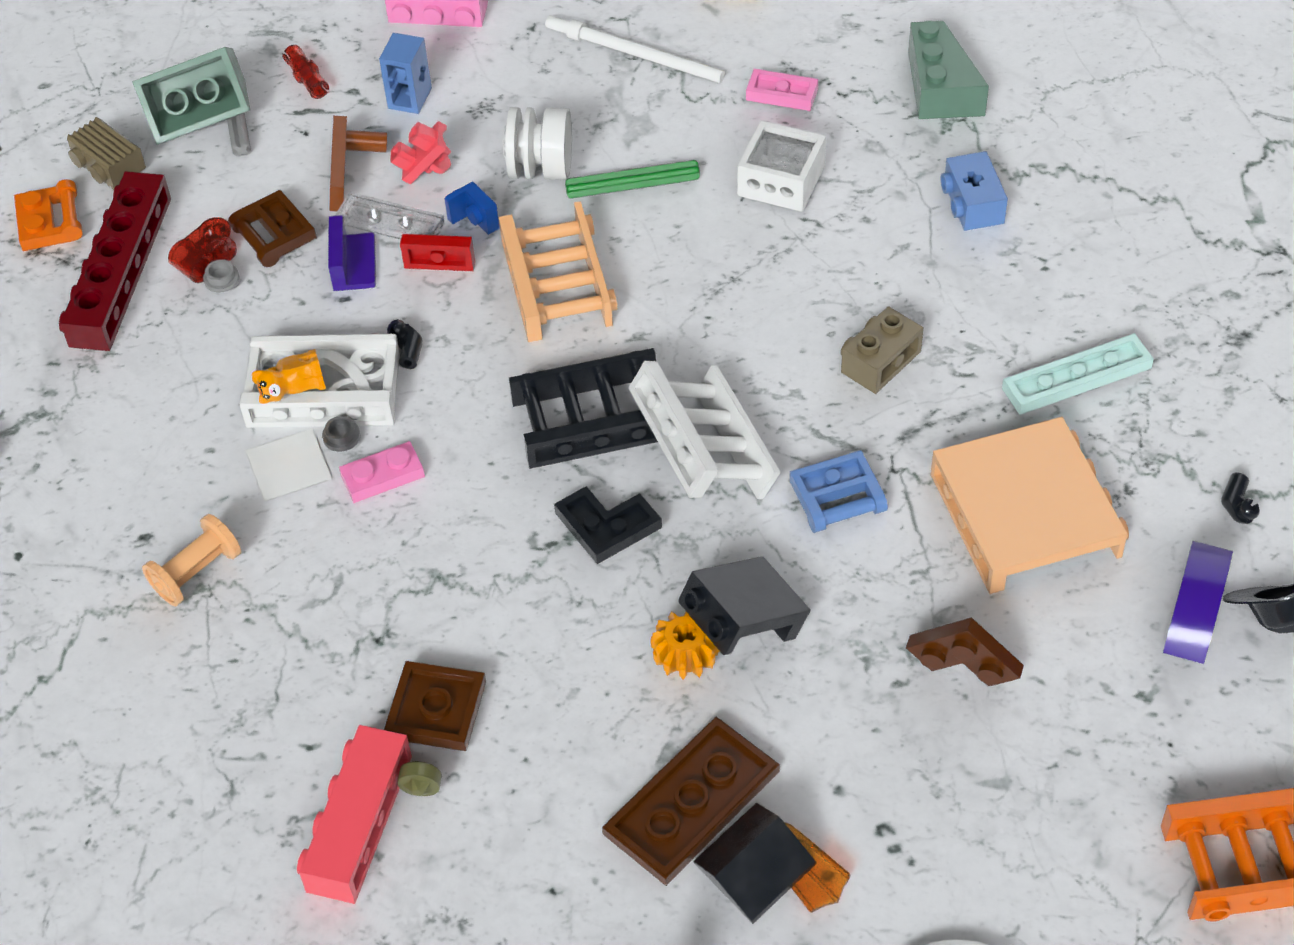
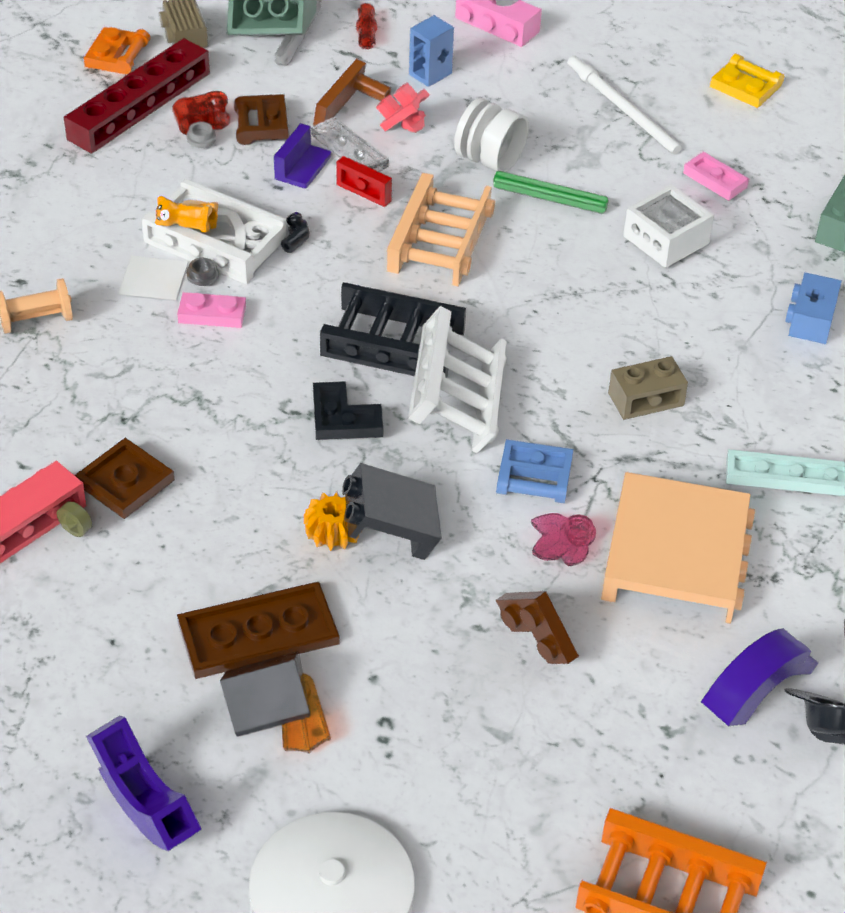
camera: 25 degrees right, 5 degrees down
(472, 203) = (410, 157): blue bracket -> none
(913, 553) = (563, 537): none -> clear pink plate

